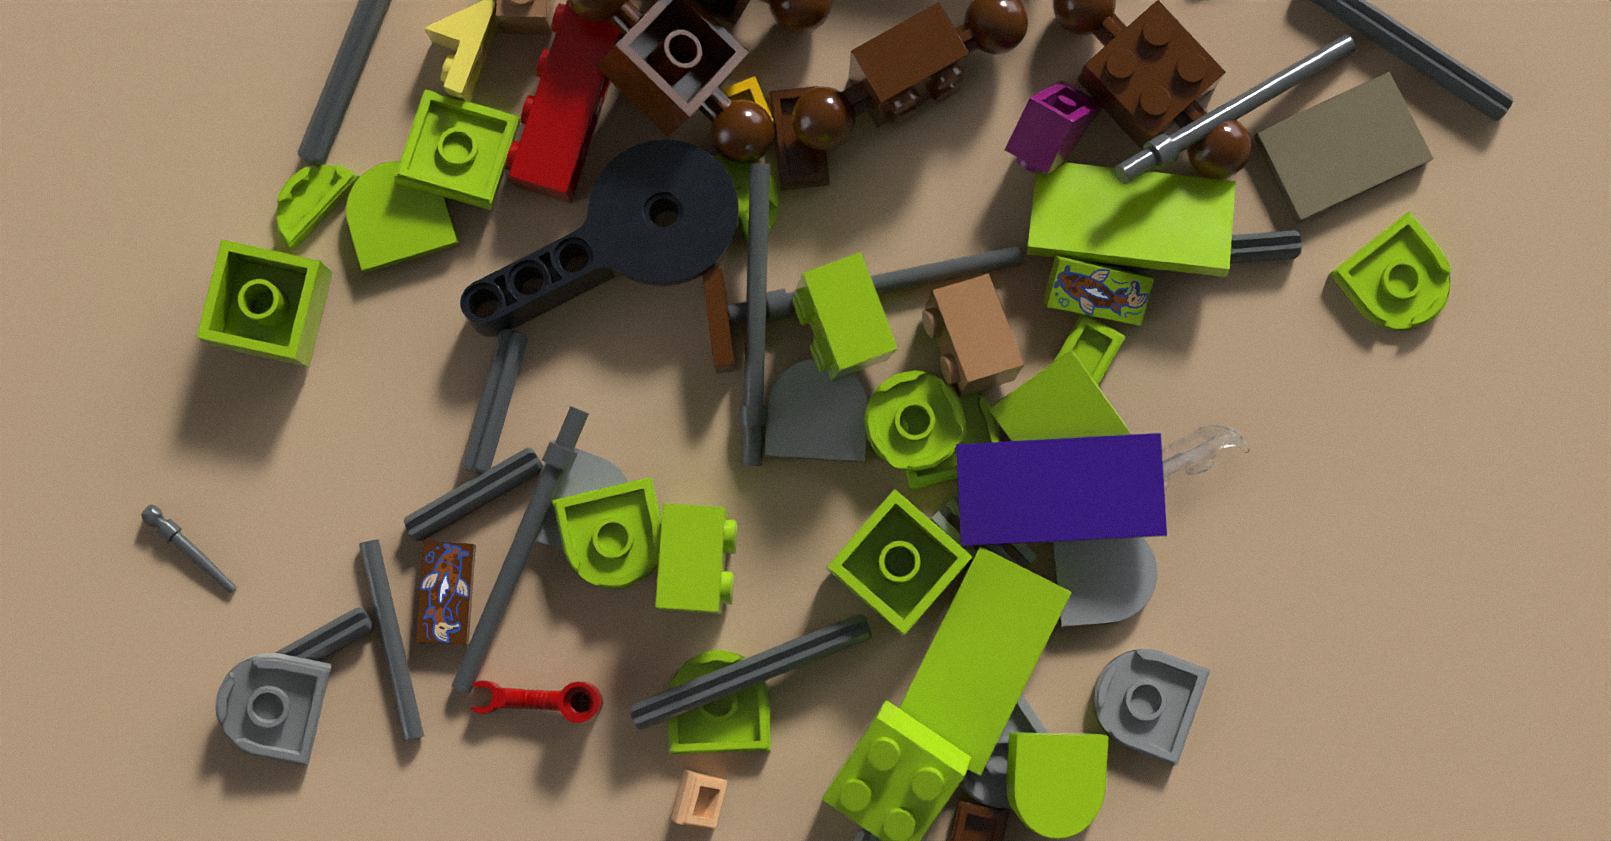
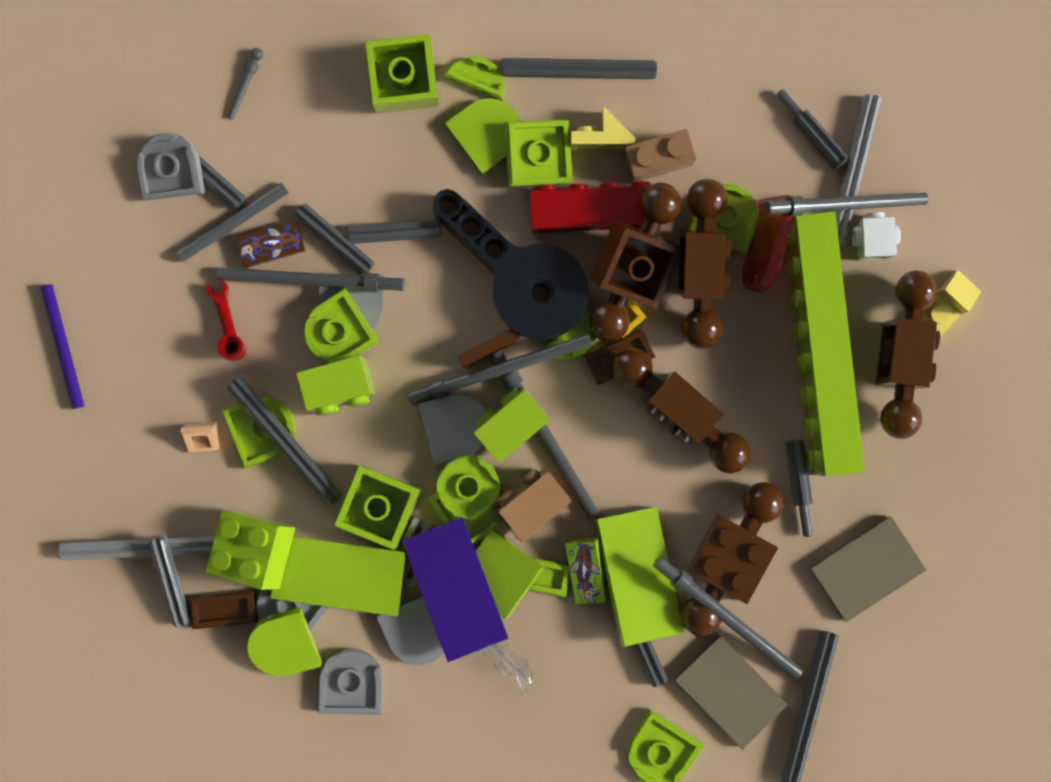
camera: 70 degrees right, 5 degrees up
(1051, 127) = (678, 509): magenta slope -> none

